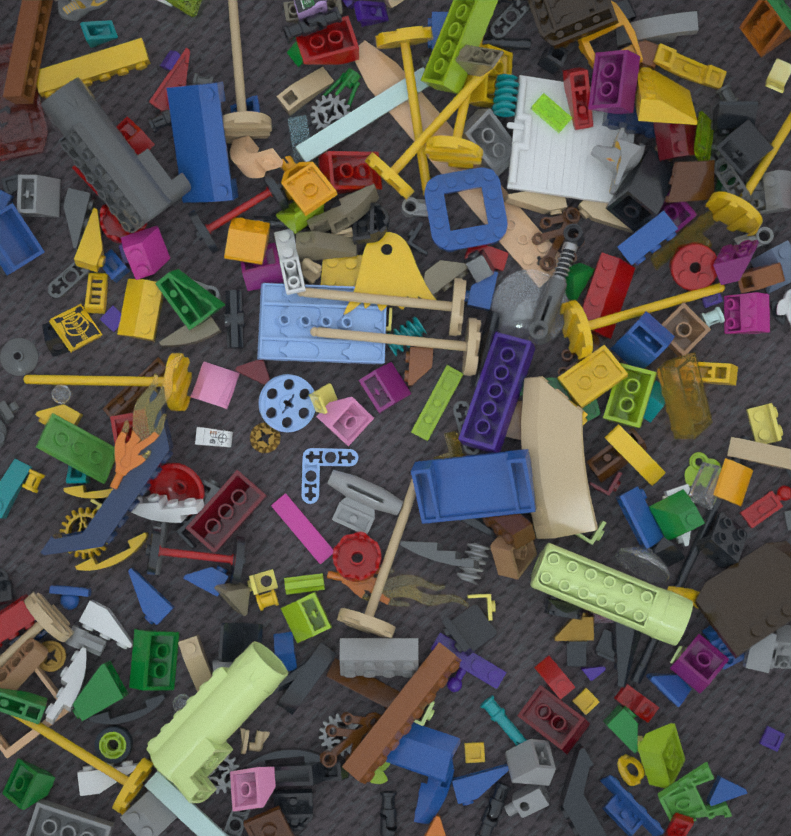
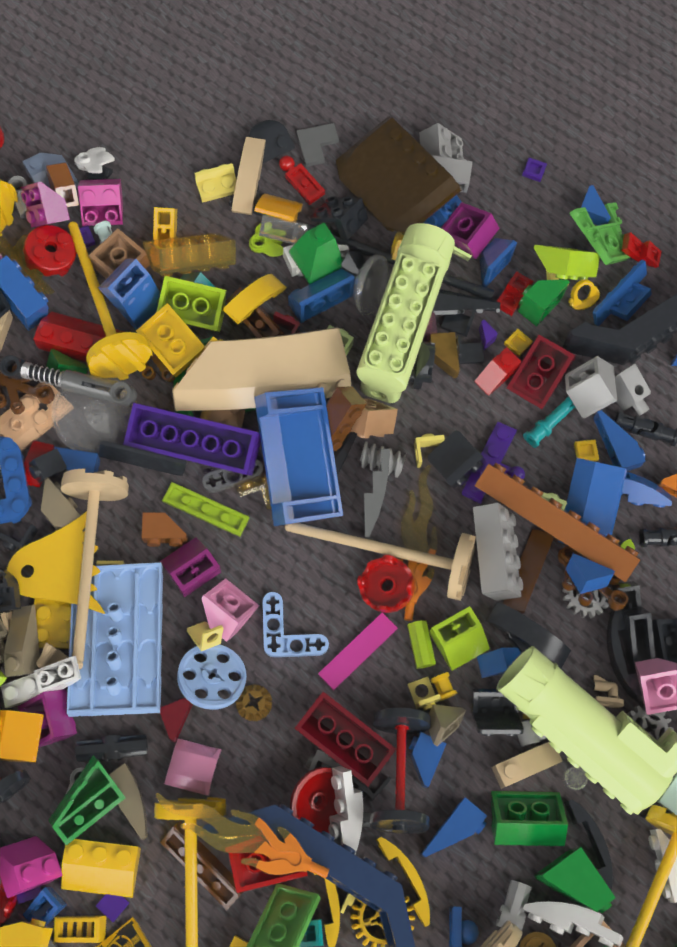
camera: 100 degrees left, 15 degrees down
(104, 621) = (487, 886): white slope -> none
(124, 740) = (646, 857): wheel -> none
(213, 437) = (256, 764): white leg -> none
(351, 733) = (587, 574): none -> blue slope
(361, 500) = (321, 585): light grey plate -> none
(414, 329) = (126, 544): teal piece -> none
(468, 346) = (140, 471): tan piece -> none

